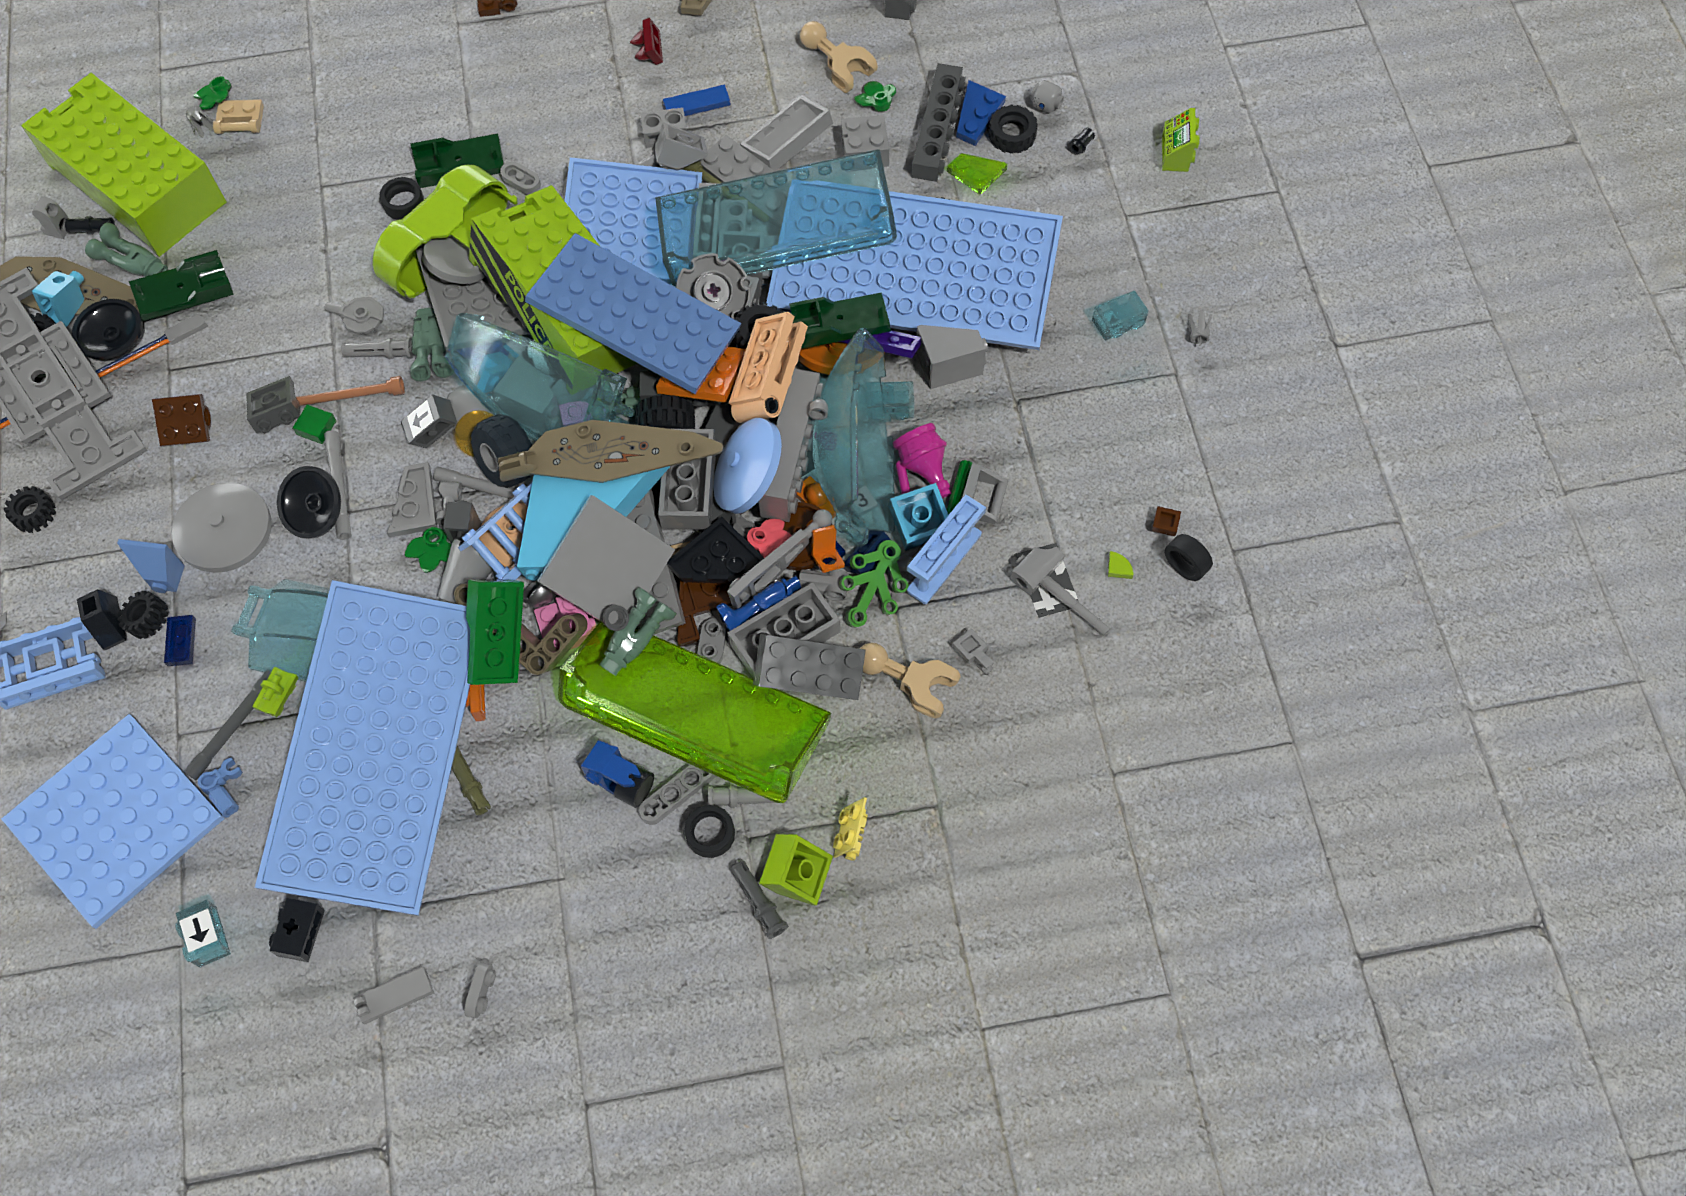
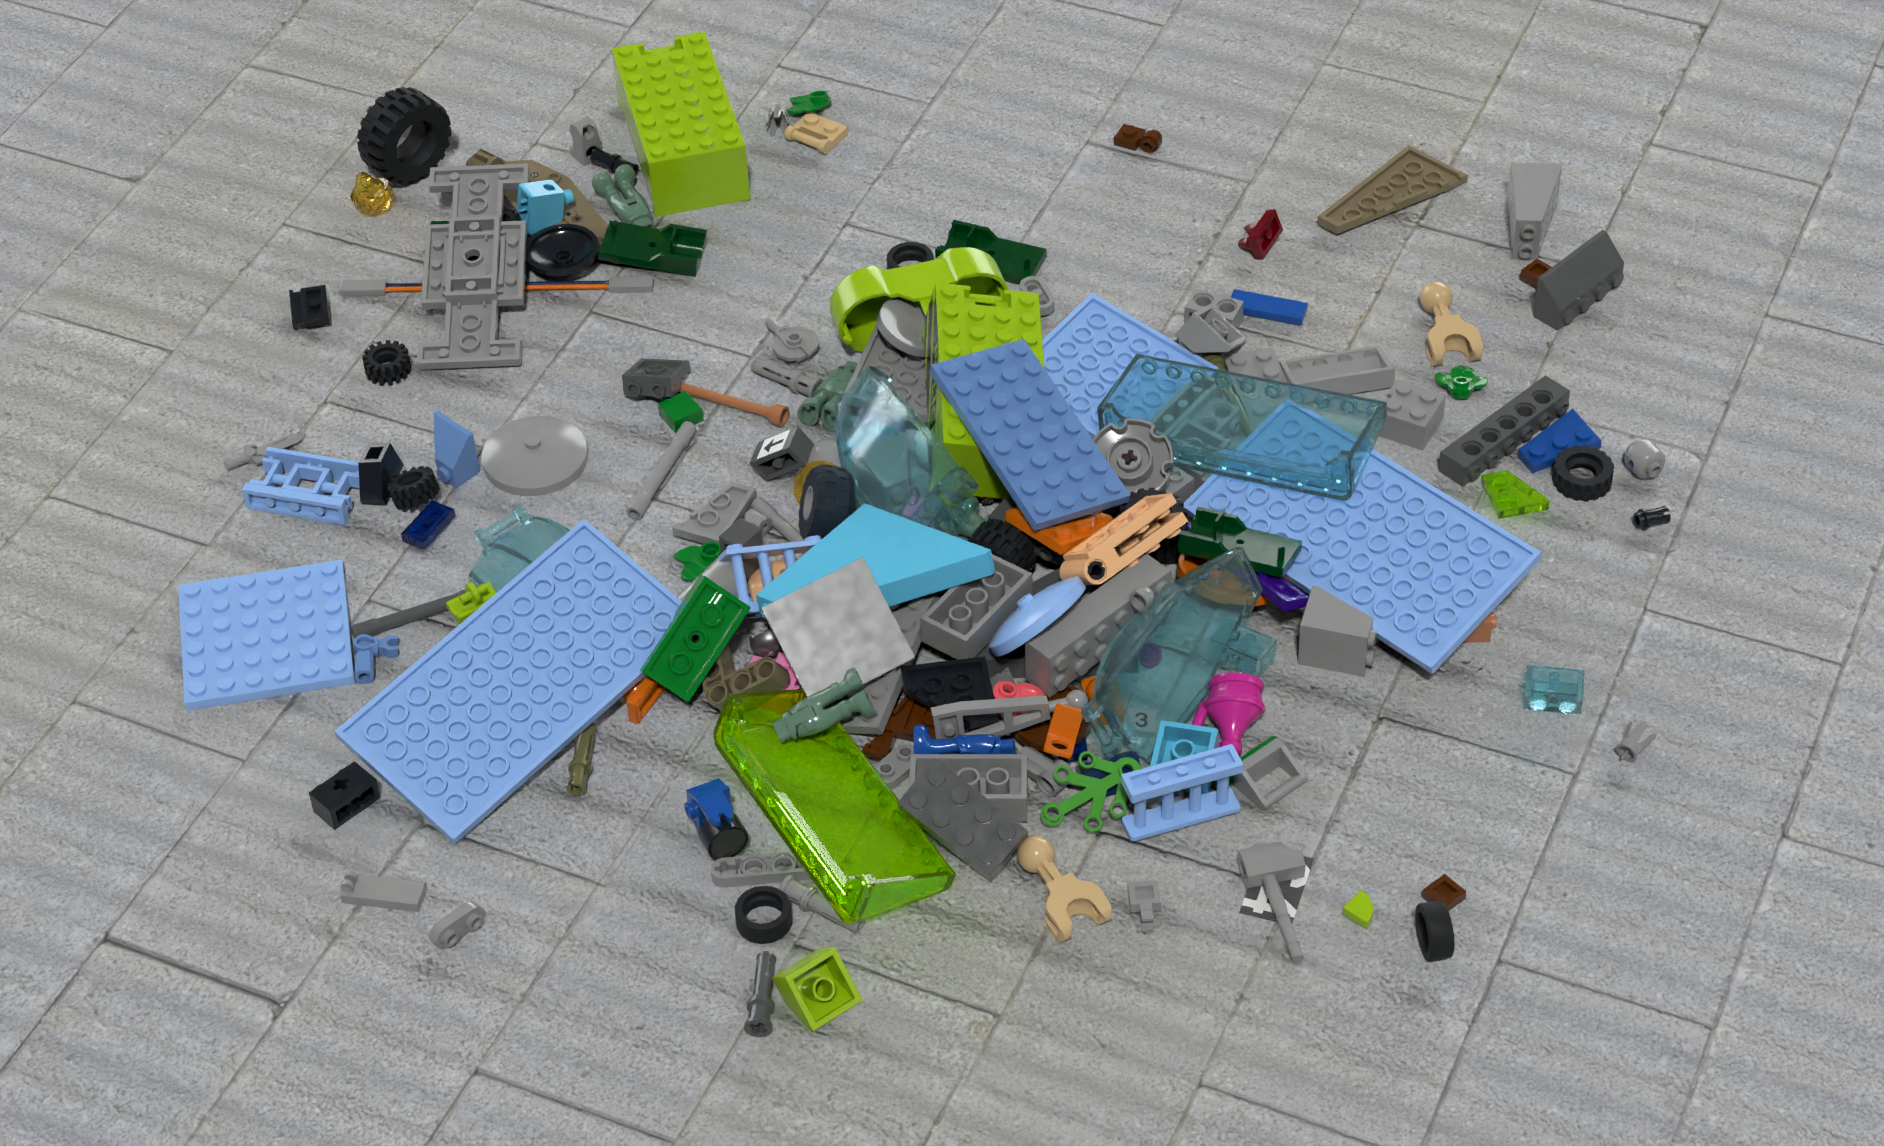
camera: 35 degrees right, 20 degrees down
(181, 419) = (568, 351): reddish brown plate -> none
(202, 934) = (266, 756): brick -> none
(299, 502) = (622, 467): black dish -> none
(606, 451) = (909, 536): dark tan wing -> none
(623, 618) = (815, 671): dark grey piece -> none
(852, 823) = (895, 984): light yellow hinge -> none
(1180, 141) = (1757, 564): lime slope -> none

